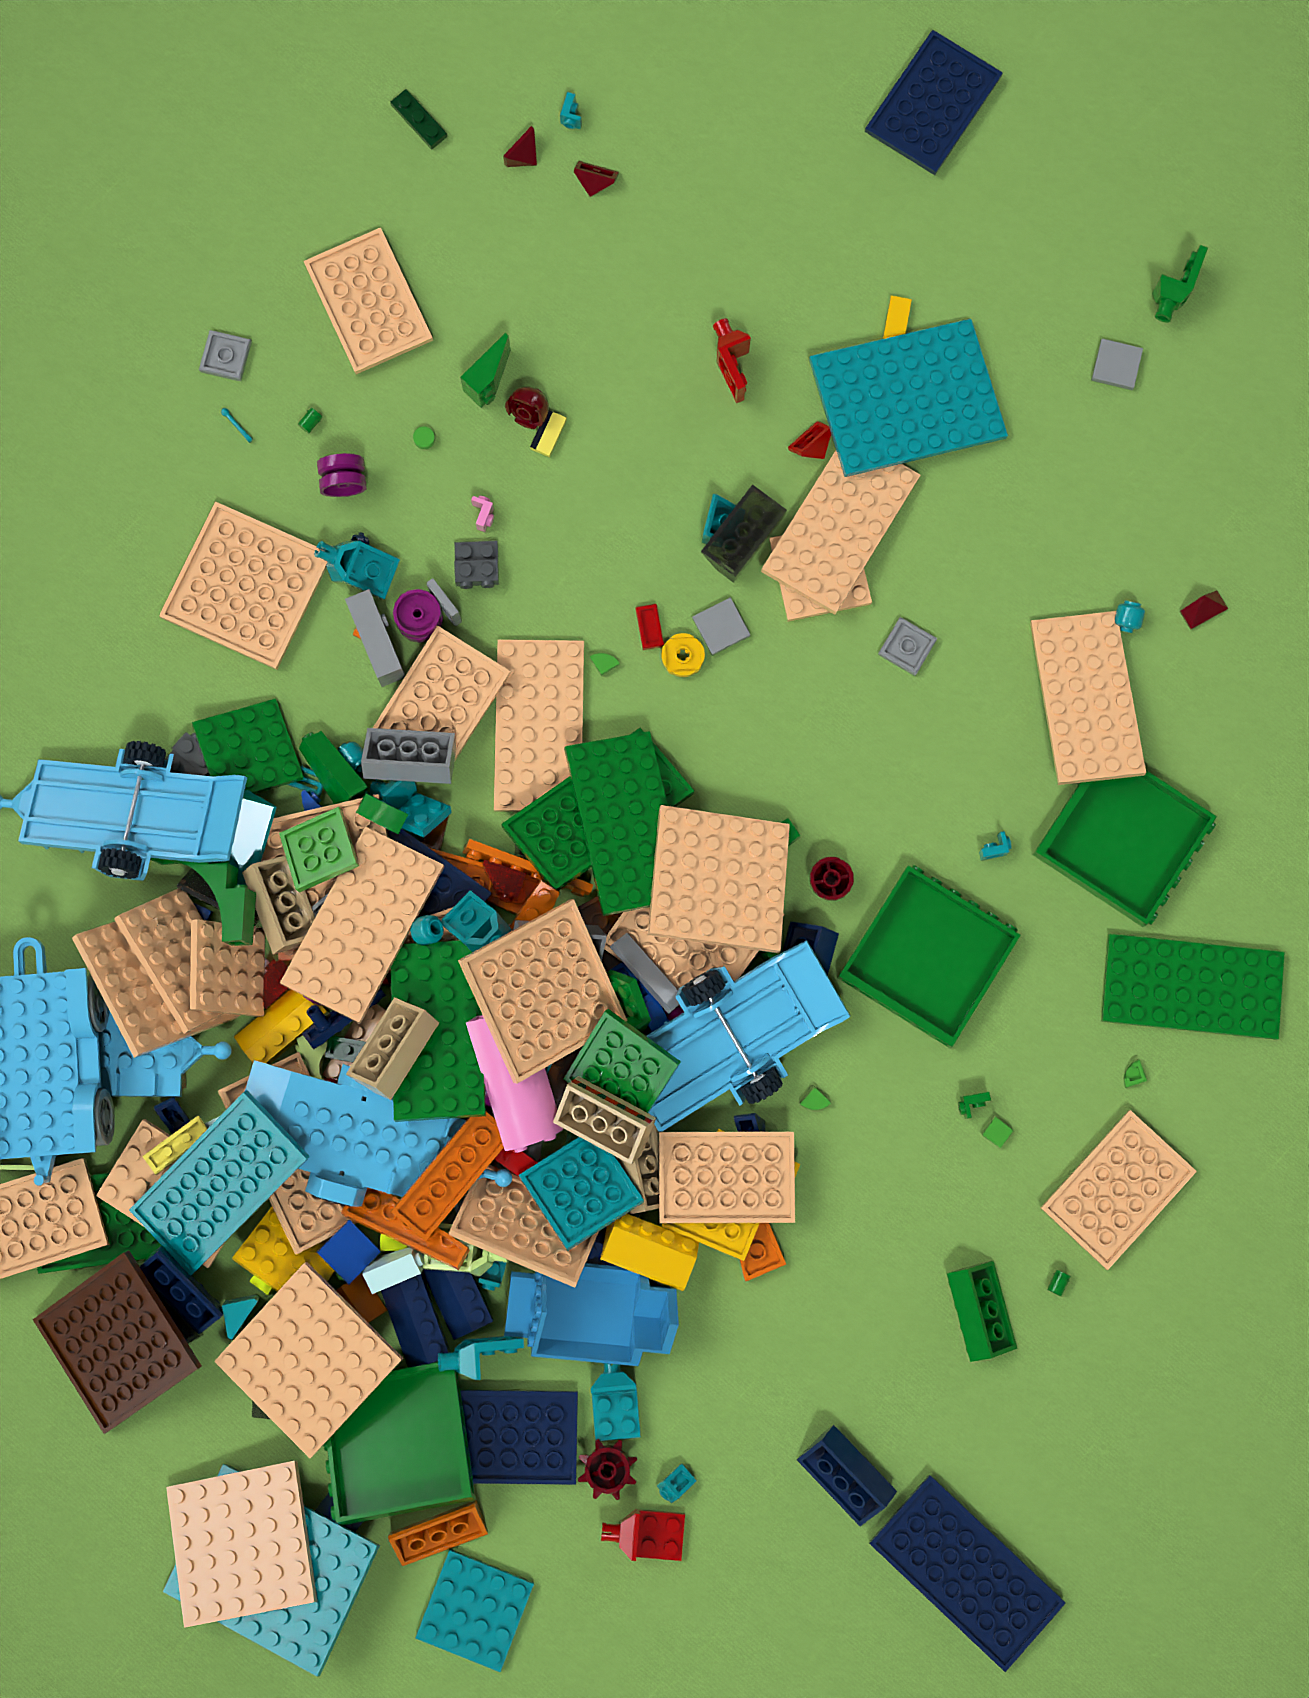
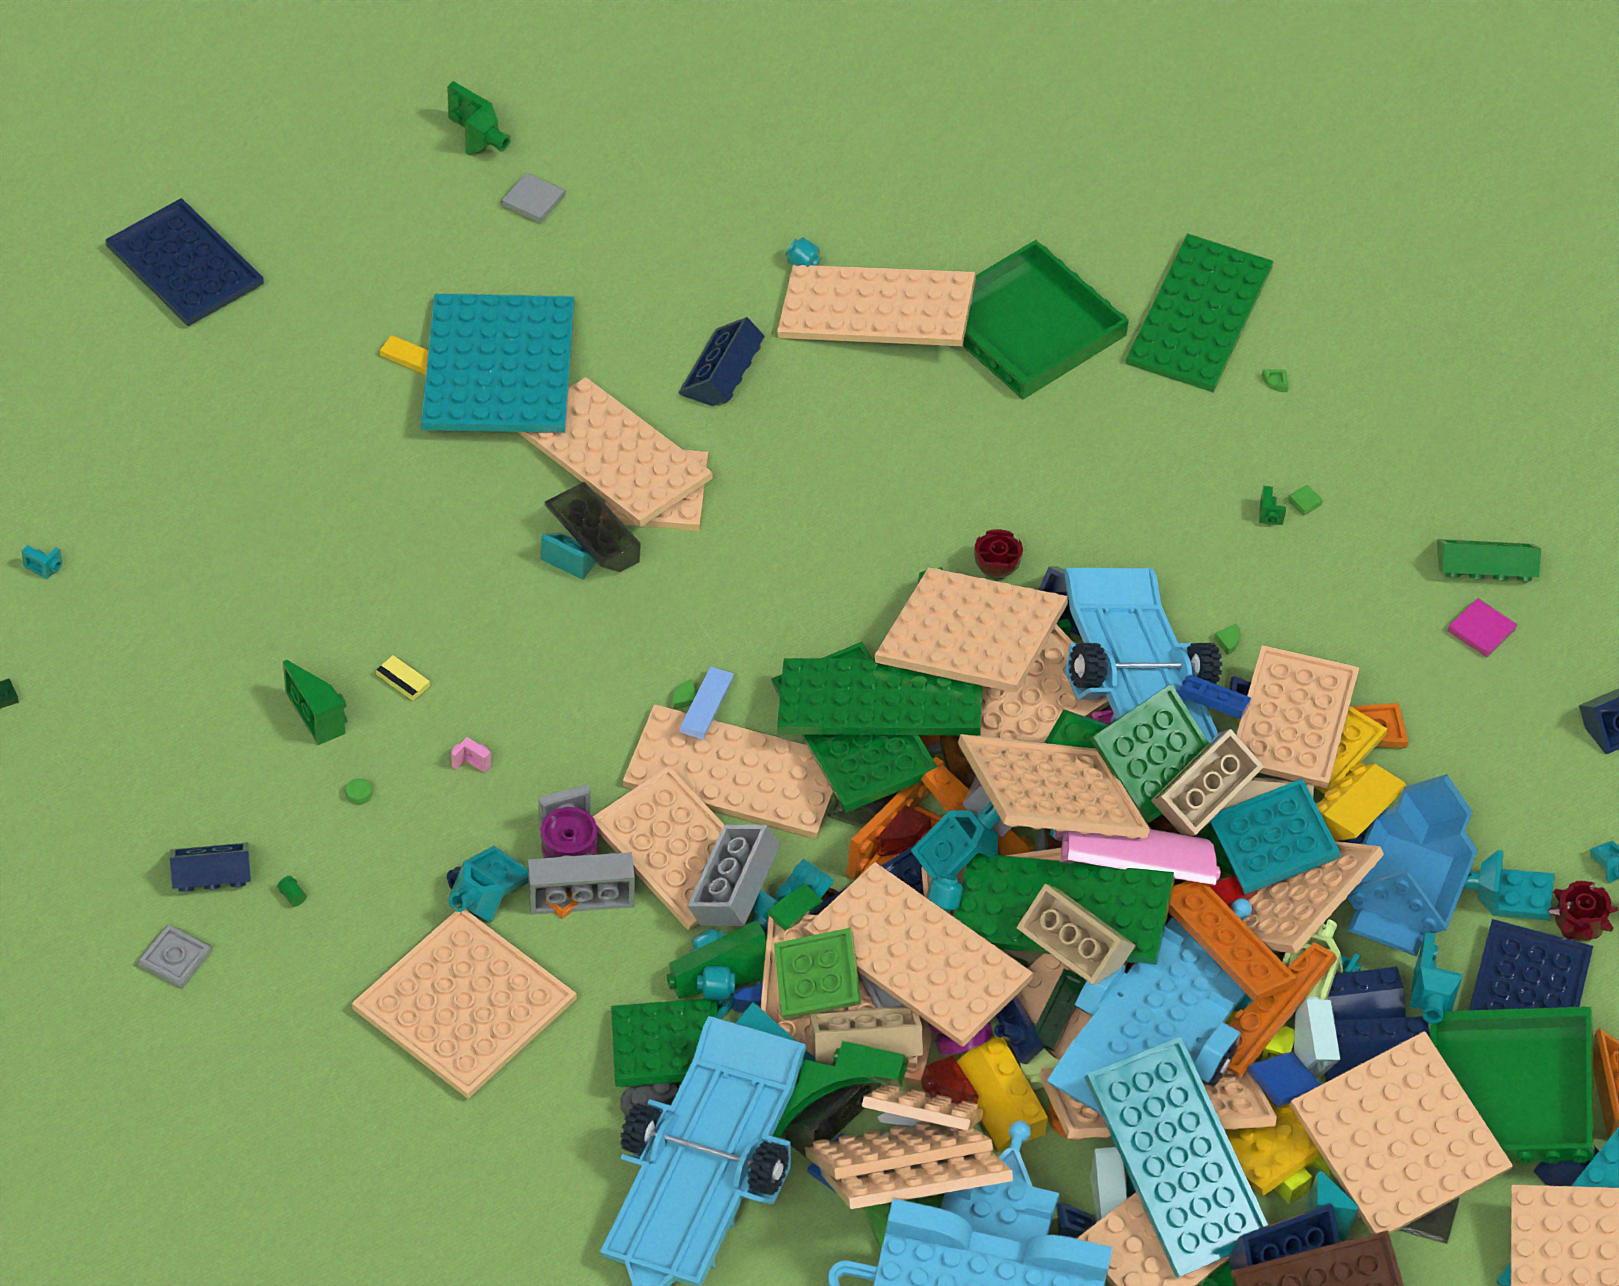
camera: 75 degrees left, 30 degrees down
(175, 1145) = (1117, 1205): light yellow tile -> none
(225, 412) = (285, 958): teal hinge -> none
(307, 773) = (716, 983): none -> teal head
(313, 350) = (210, 866): none -> dark blue slope
(341, 475) = (376, 865): magenta wheel -> none
(368, 300) = (173, 800): light nougat plate -> none
(476, 564) = (527, 778): dark grey plate -> none
(523, 151) = (65, 614): dark red slope -> none
(528, 407) = (369, 680): dark red cylinder -> none
(594, 177) = (128, 561): dark red slope -> none
(594, 682) = (706, 703): none -> light blue tile
(646, 972) = (1042, 727): light grey tile -> none
(649, 626) = (660, 646): red tile -> none
(691, 646) = (704, 634): yellow plate -> none
(717, 1103) = (1214, 696): none -> blue plate
(721, 626) = (684, 584): light grey tile -> none
(729, 348) = (397, 493): red plate -> none
(812, 442) = (510, 453): red slope -> none
(902, 1321) = (1482, 627): none -> dark pink tile
(907, 646) = (765, 438): light grey tile -> none
(929, 956) = (1104, 501): green panel -> none
(976, 584) = (723, 363): none -> dark blue slope
(993, 851) = (1007, 416): teal bracket -> none
(1058, 1283) = (1474, 490): green piece -> none
(1118, 1189) = (1391, 420): light nougat plate -> none
(1203, 609) = (816, 203): dark red slope -> none

